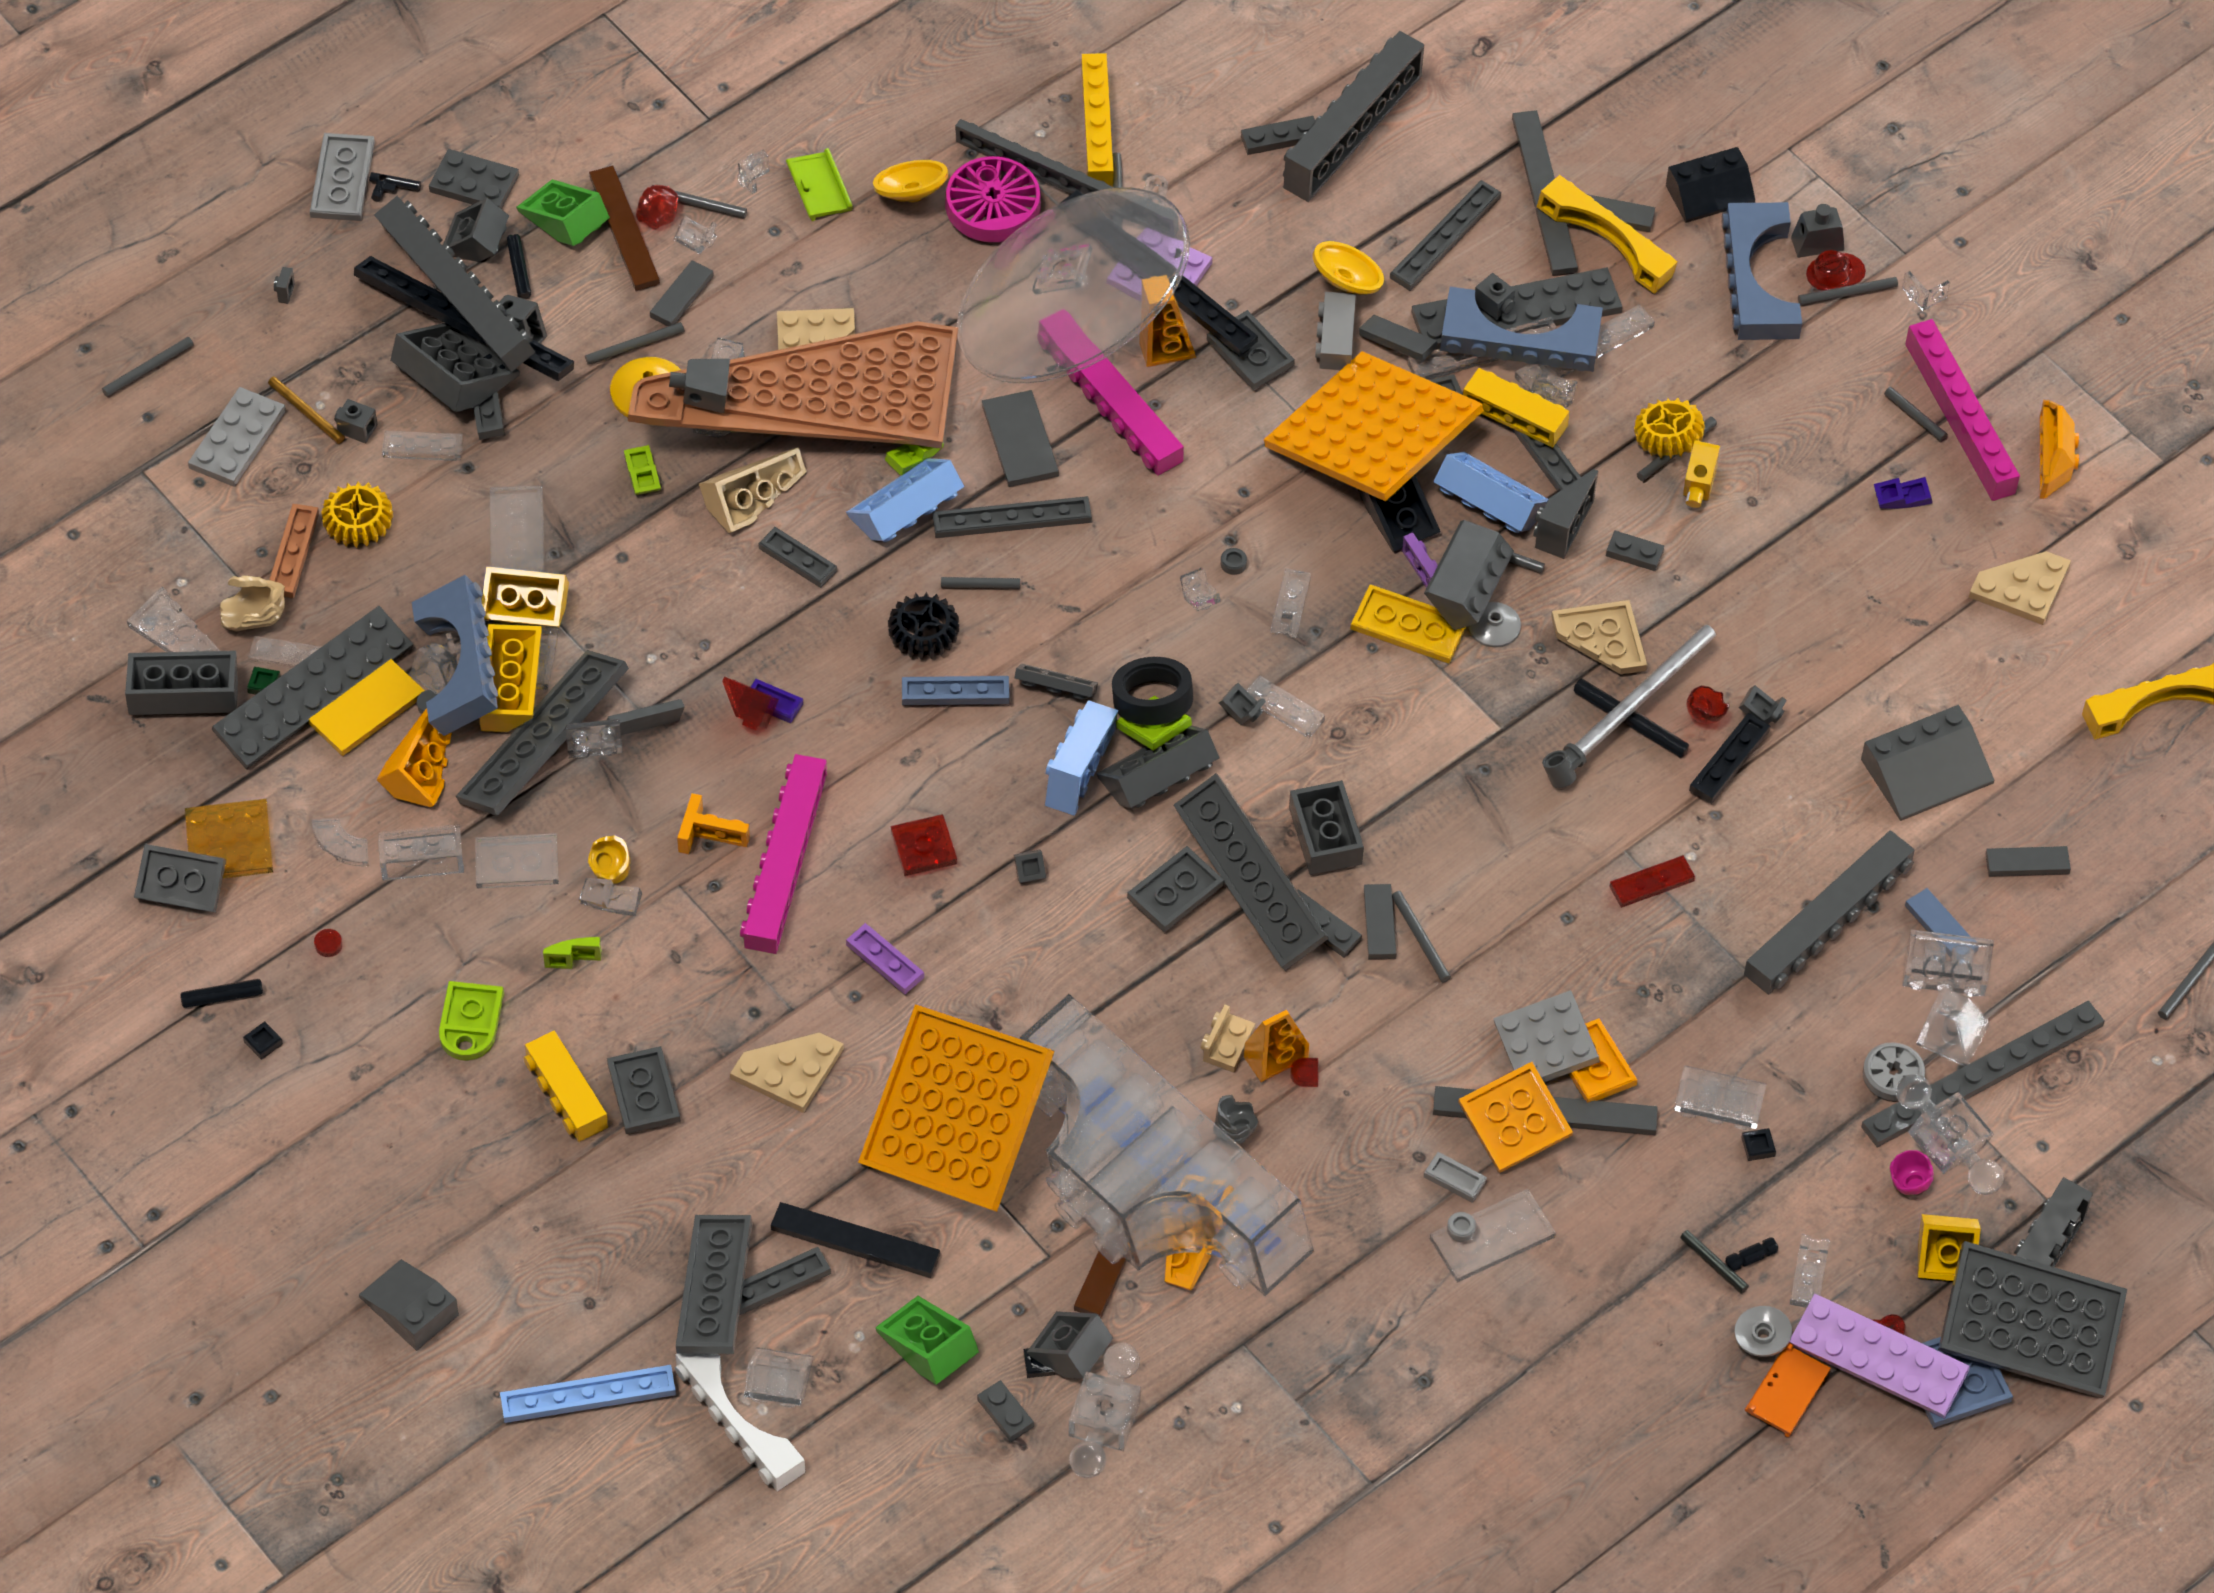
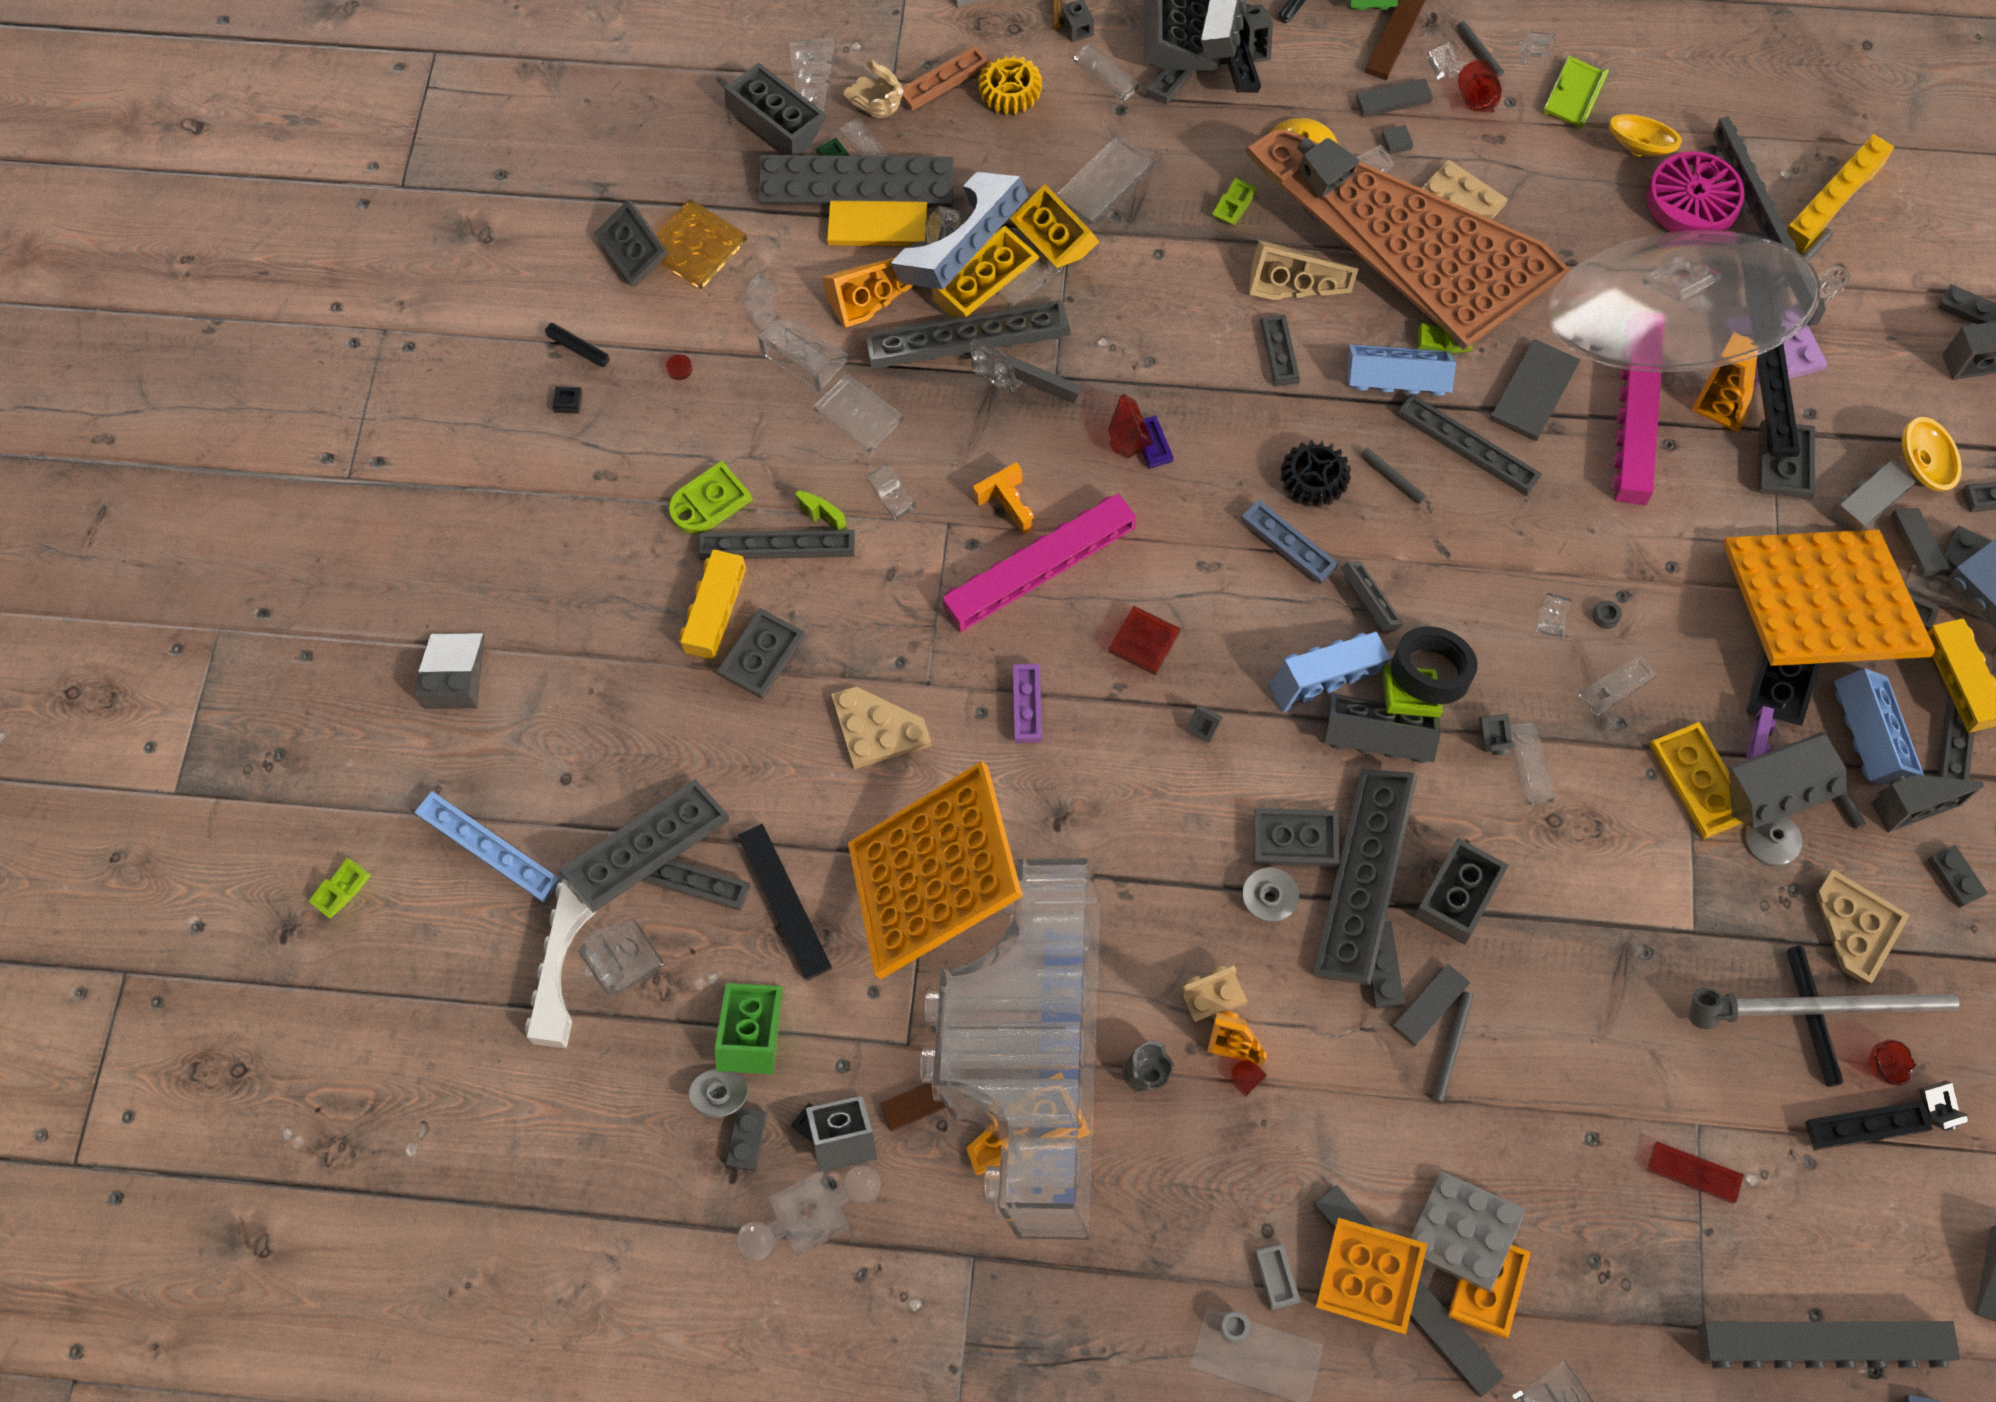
camera: 50 degrees right, 10 degrees up
(504, 1518) = (338, 891): none -> lime slope
(563, 1005) = (779, 544): none -> dark grey tile
(610, 858) = (916, 464): yellow hair -> none
(634, 343) = (1324, 108): dark grey bar -> none
(657, 206) = (1439, 22): clear red hair -> none
(718, 325) = (1397, 139): none -> dark grey tile
(745, 234) = (1480, 86): none -> clear red piece
(954, 1395) = (713, 1084): none -> light grey dish
(1198, 930) = (1274, 882): none -> light grey dish

